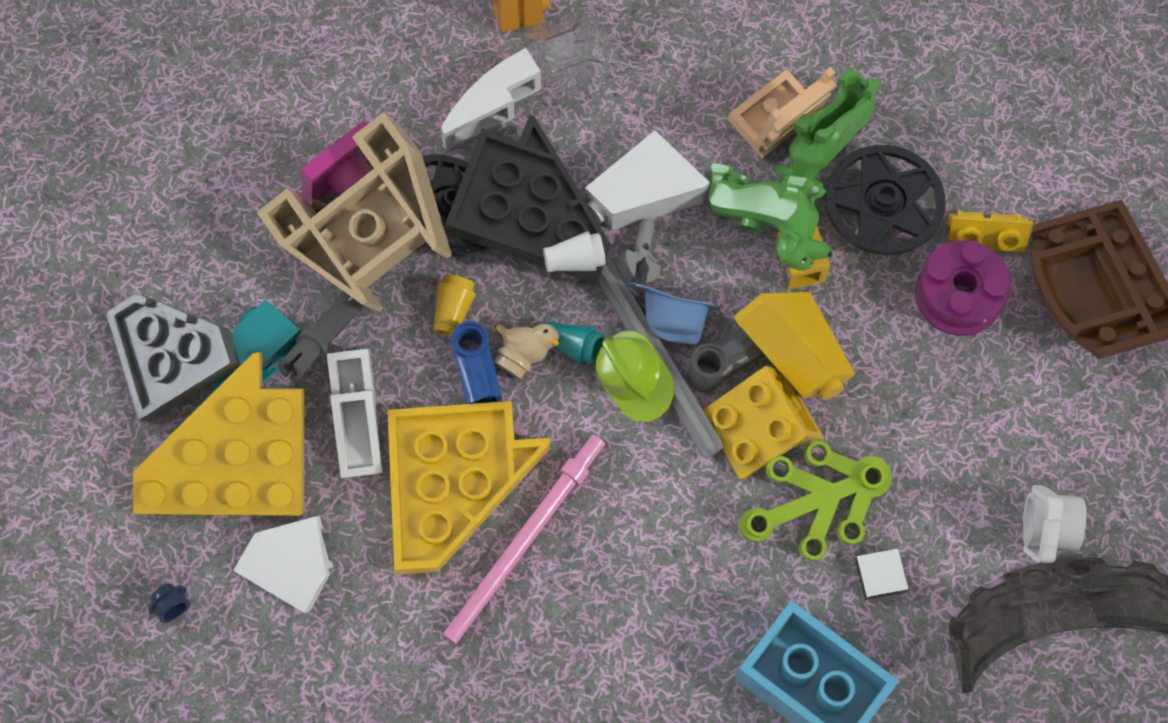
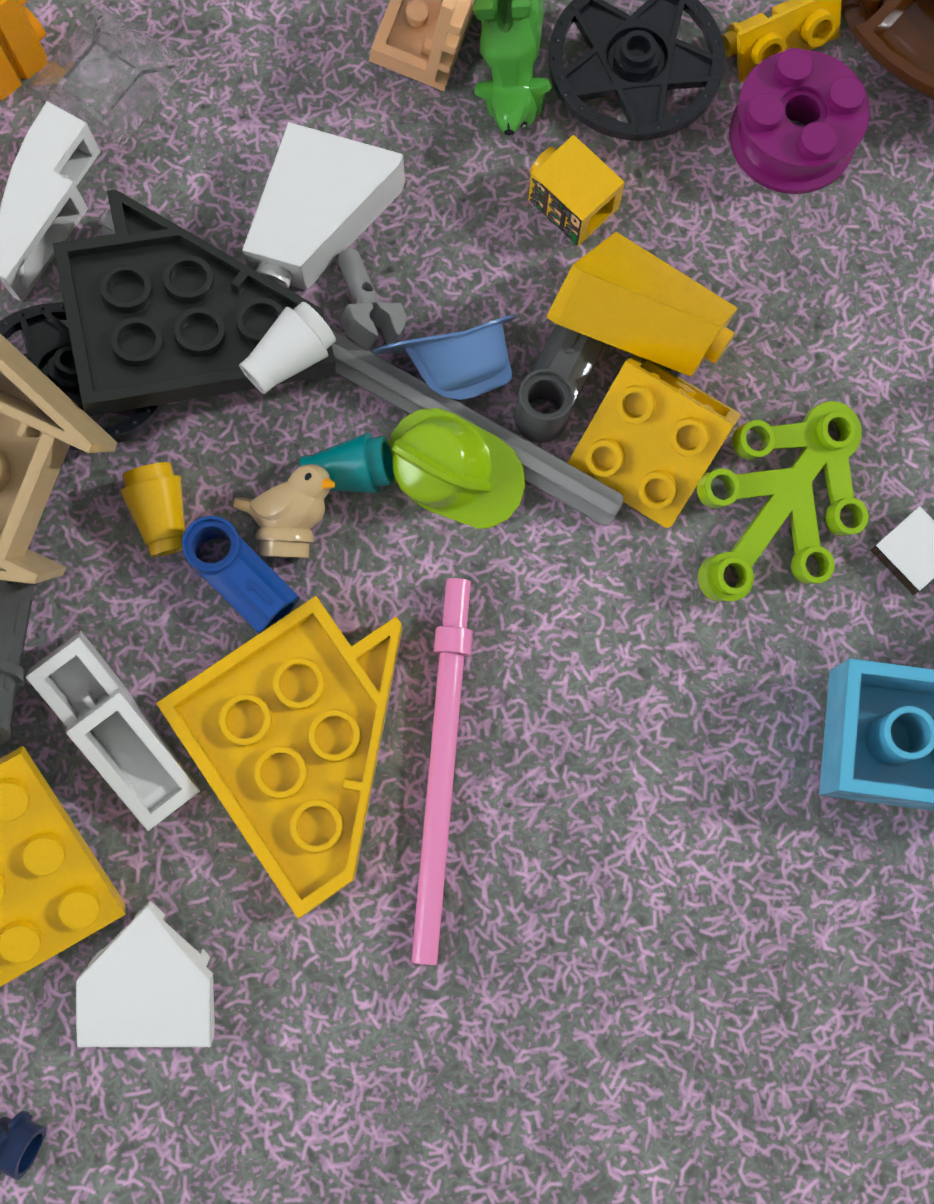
camera: 30 degrees left, 10 degrees up
(775, 207) = (509, 140): bright green animal -> none

